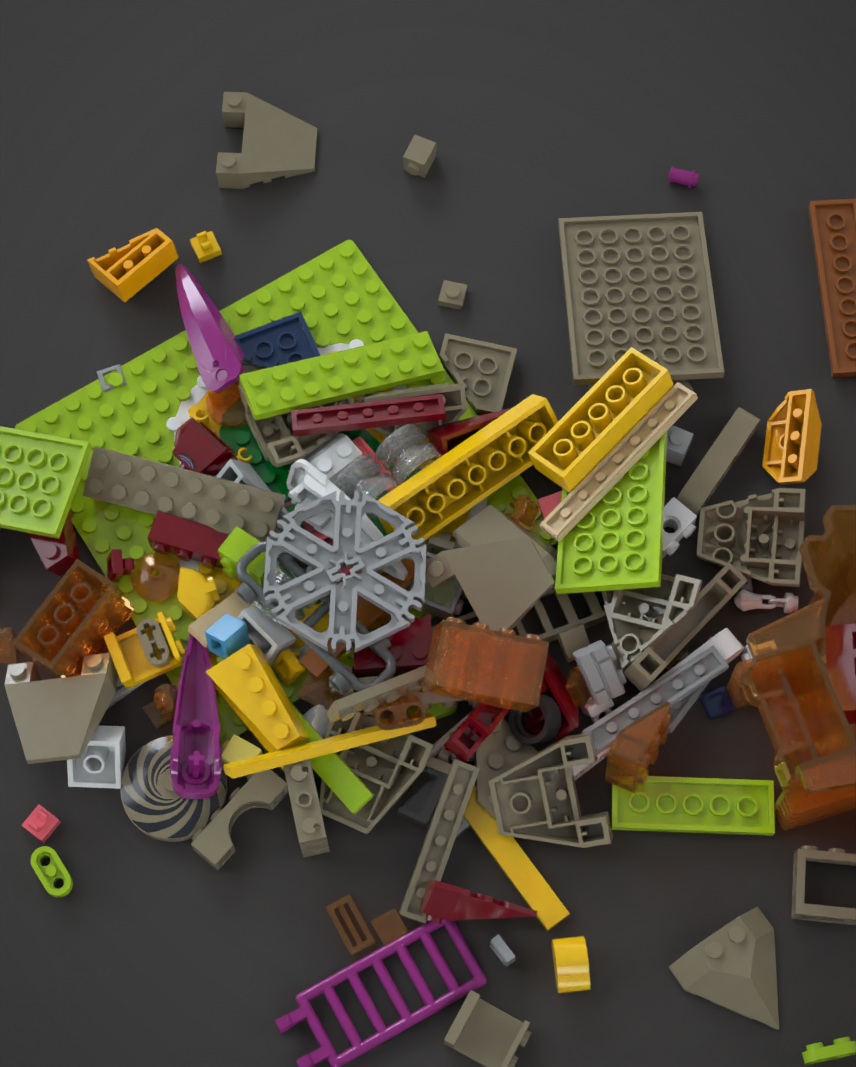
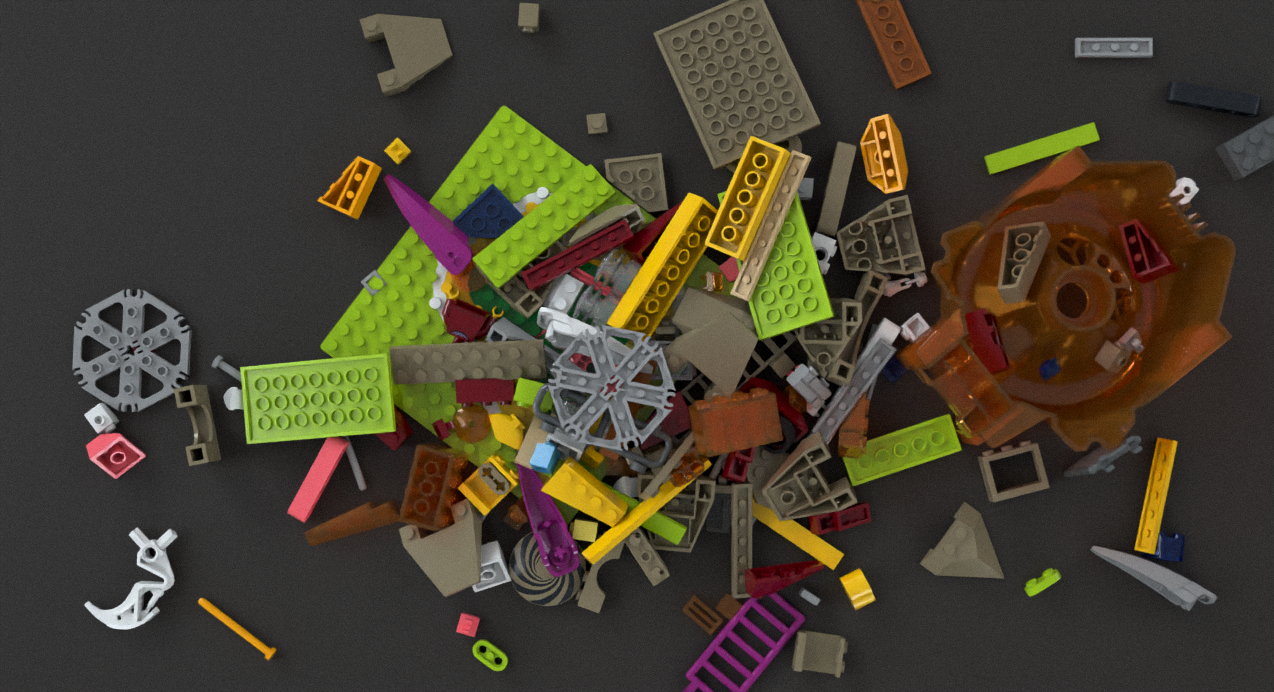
camera: 25 degrees left, 20 degrees up
(580, 862) = (840, 520): none -> dark red slope

